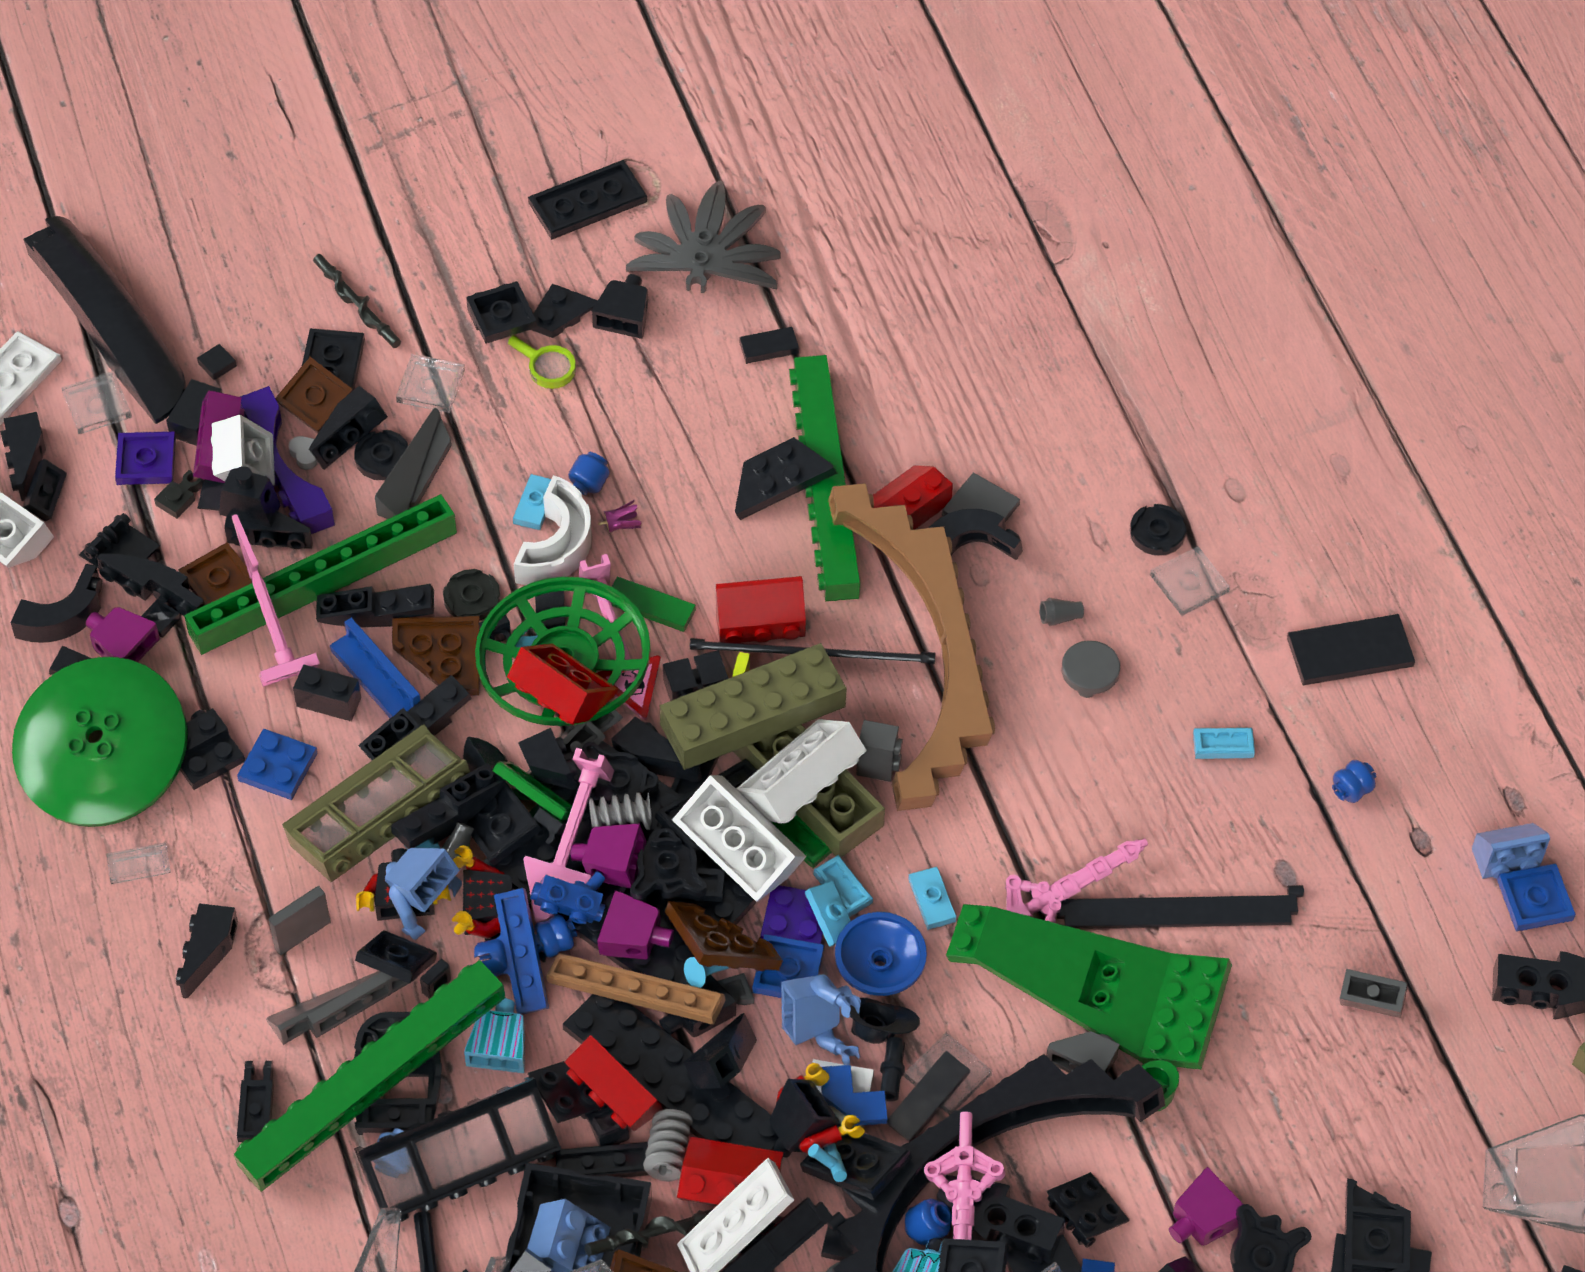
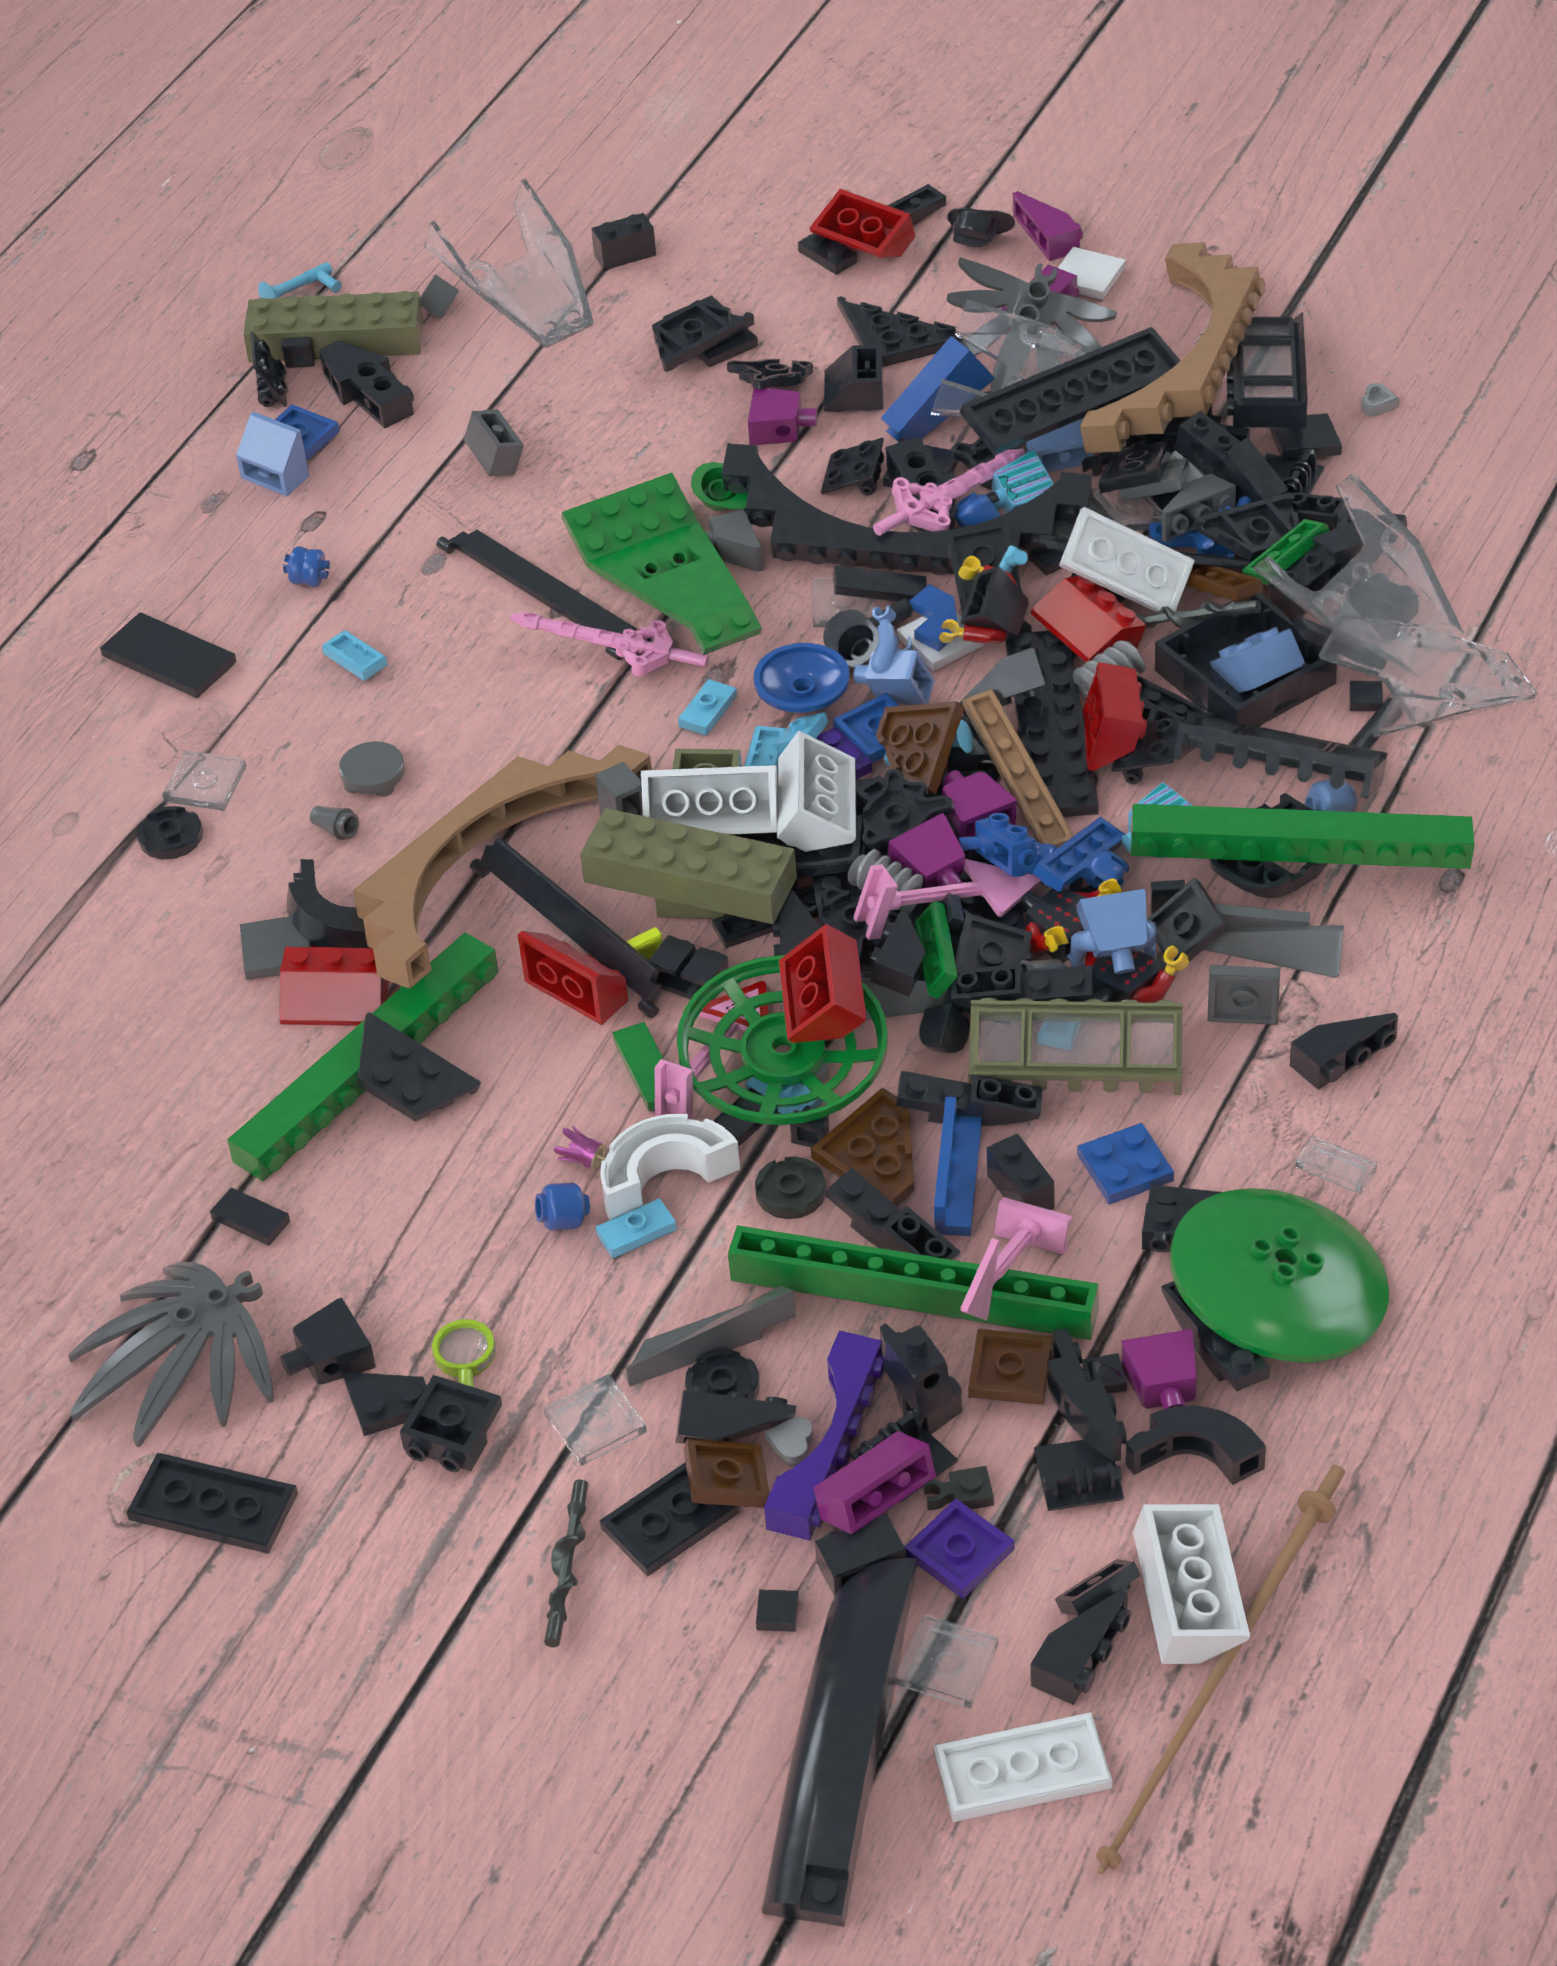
camera: 130 degrees left, 10 degrees down
(239, 444) = (878, 1420): white slope -> none
(255, 1101) = (1409, 910): black hinge -> none

